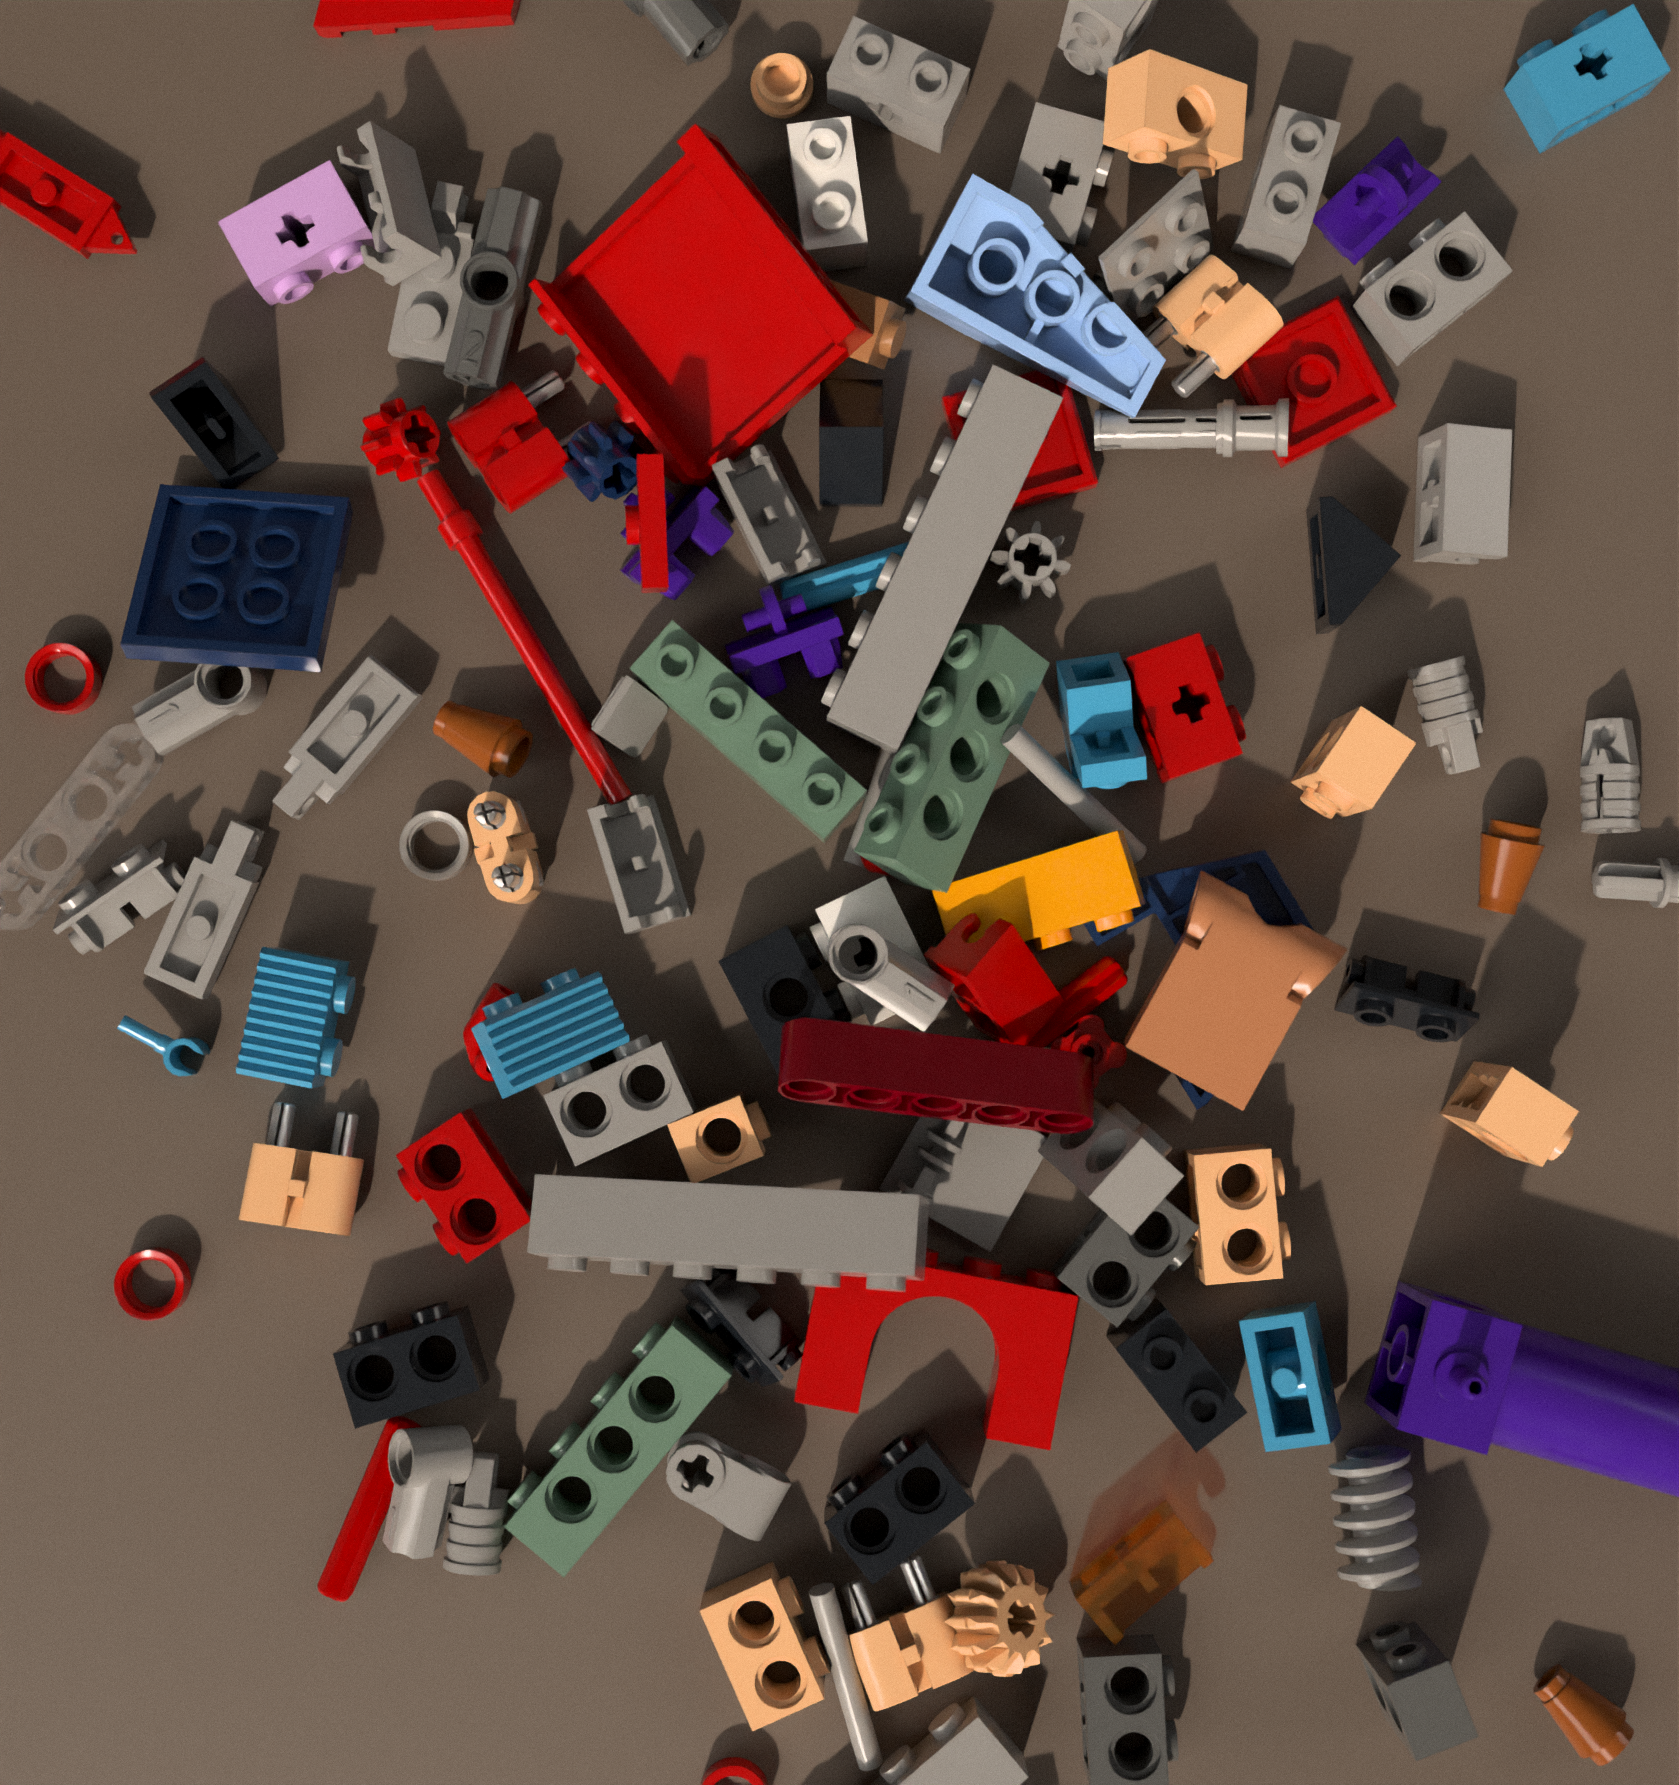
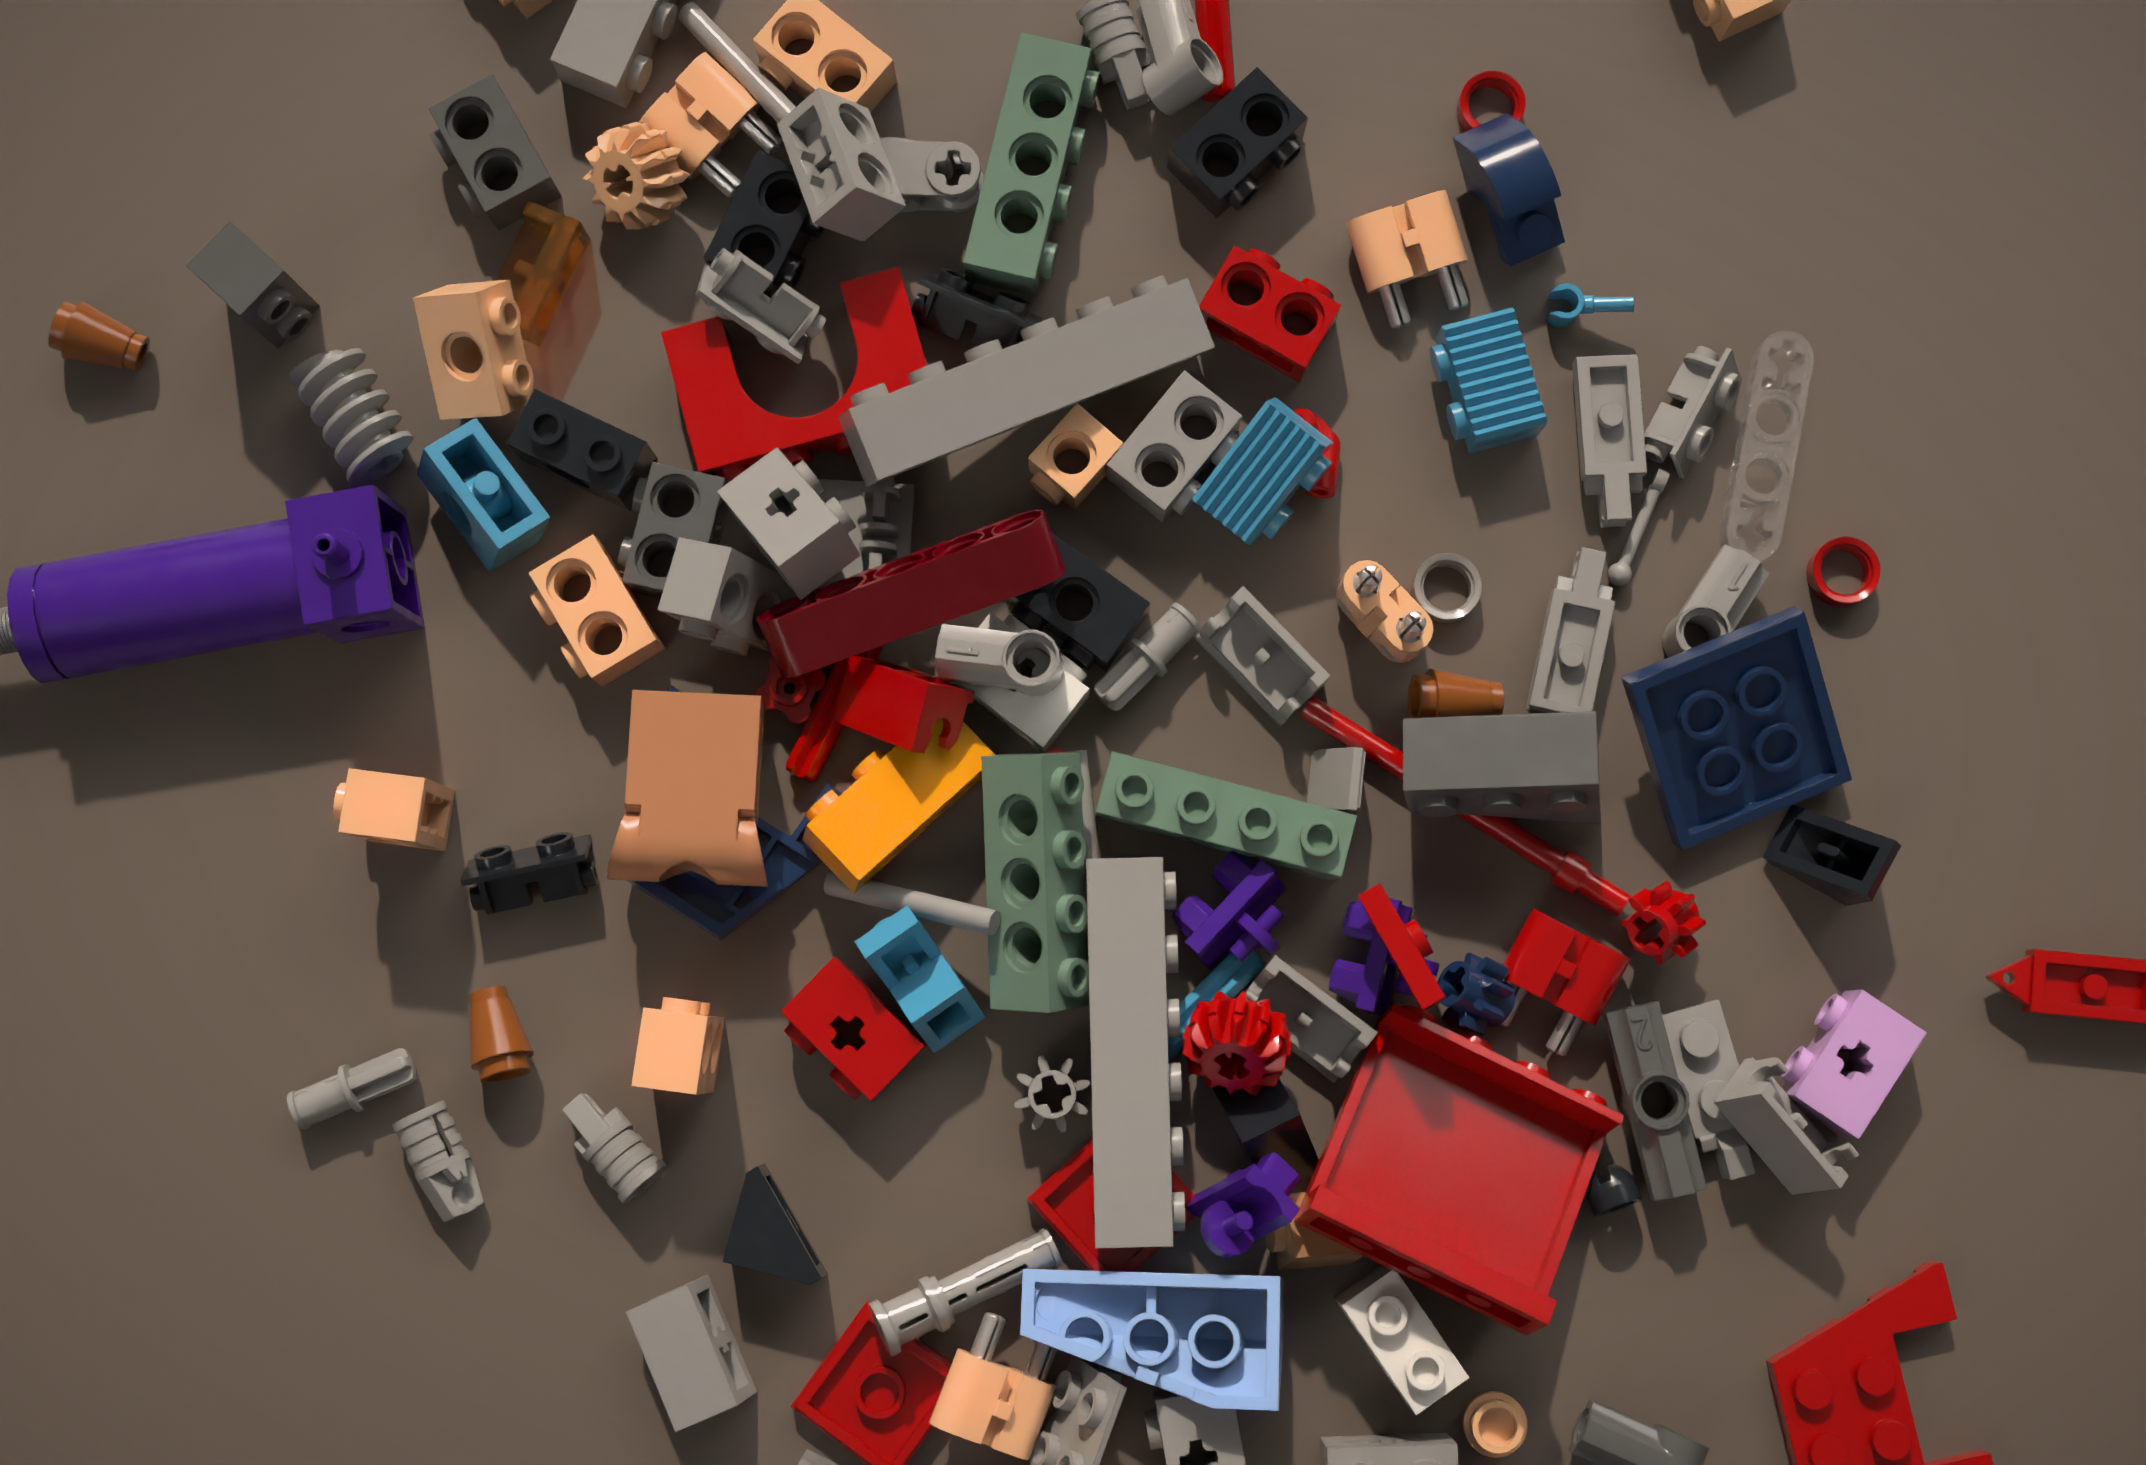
camera: 155 degrees right, 5 degrees down
(170, 1195) = (1515, 182): none -> dark blue brick
(268, 780) = (1620, 573): none -> light grey hinge
(472, 647) = (1504, 766): none -> dark grey wedge
(572, 227) = (1613, 1194): none -> black hinge
(745, 916) = (1146, 657): none -> light grey axle
(801, 1527) = (840, 165): none -> light grey brick
(842, 519) = (1237, 1043): none -> red gear
(909, 370) = (1246, 1206): none -> dark purple hips
(961, 1454) = (734, 292): none -> light grey hinge
(1017, 1201) = (790, 522): none -> light grey brick
(1234, 1521) = (452, 327): none -> light nougat brick

